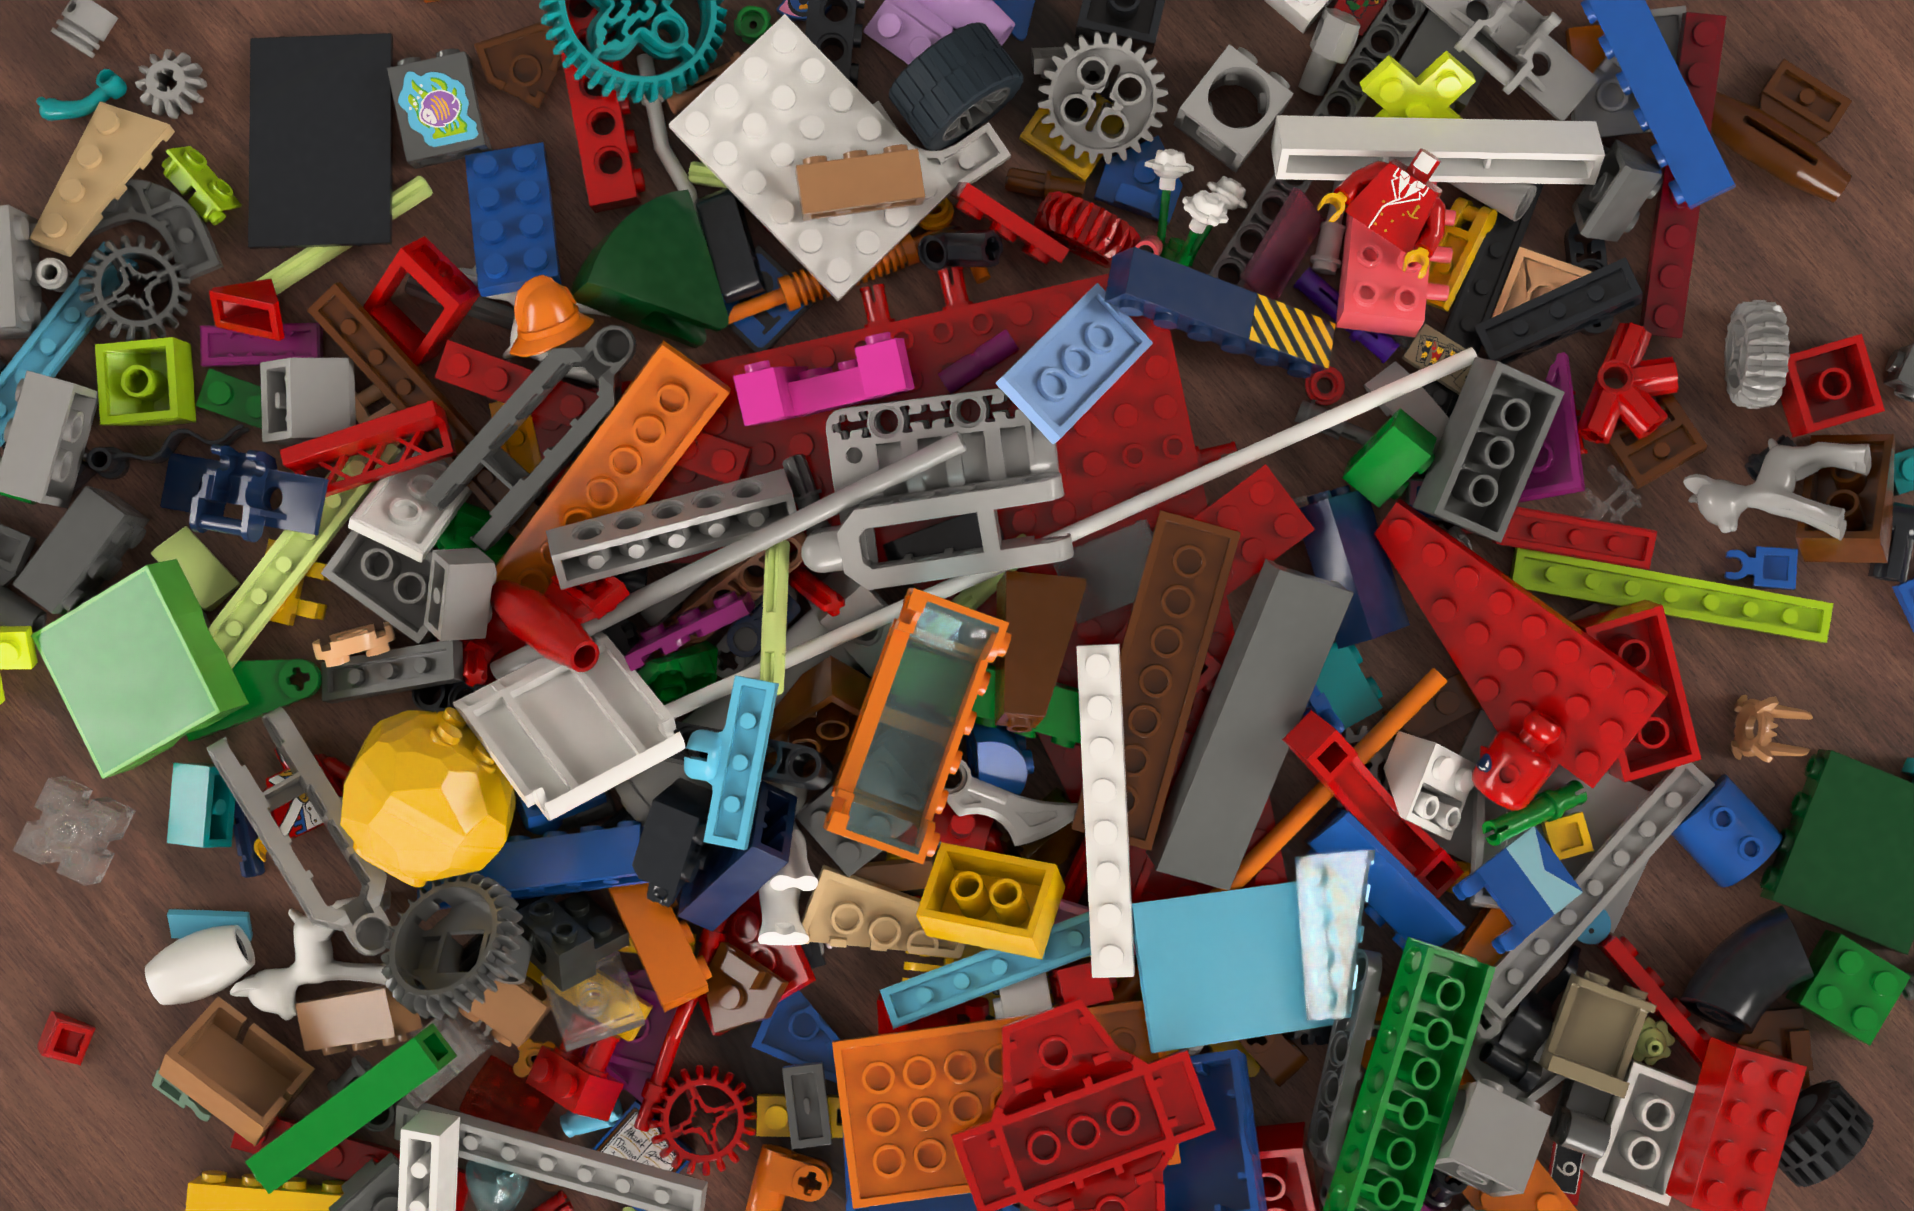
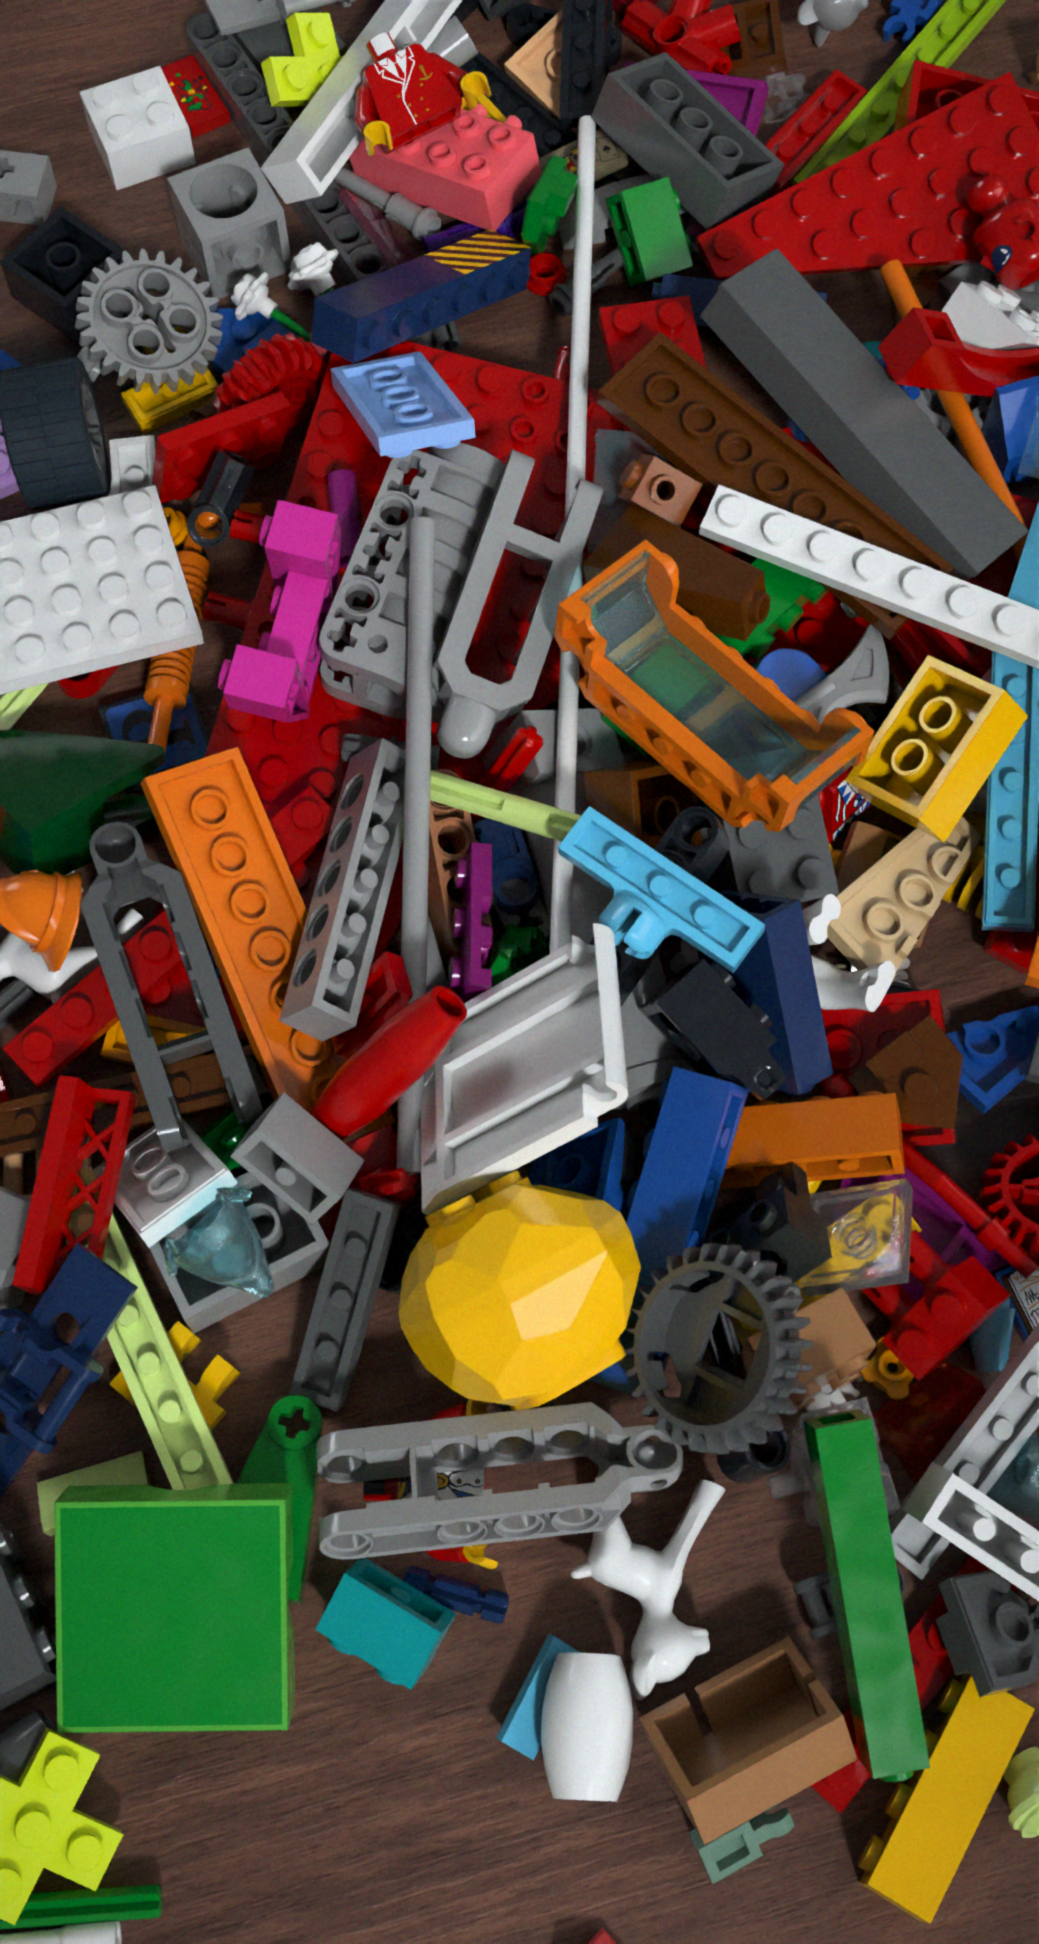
camera: 65 degrees left, 20 degrees down
(74, 830) = (332, 1813): clear brick -> none
(354, 641) = (289, 1329): light nougat plate -> none
(354, 1019) = (749, 1544): brick -> none
(372, 576) = (224, 1247): none -> clear light blue hat
(730, 245) = (84, 716): black beam -> none
(859, 182) = (95, 545): medium nougat brick -> none
(956, 533) = (516, 599): black beam -> none
(1107, 594) = (658, 488): none -> dark orange brick
(1330, 45) = (218, 121): light grey piece -> none
(1372, 366) = (548, 203): none -> green plate

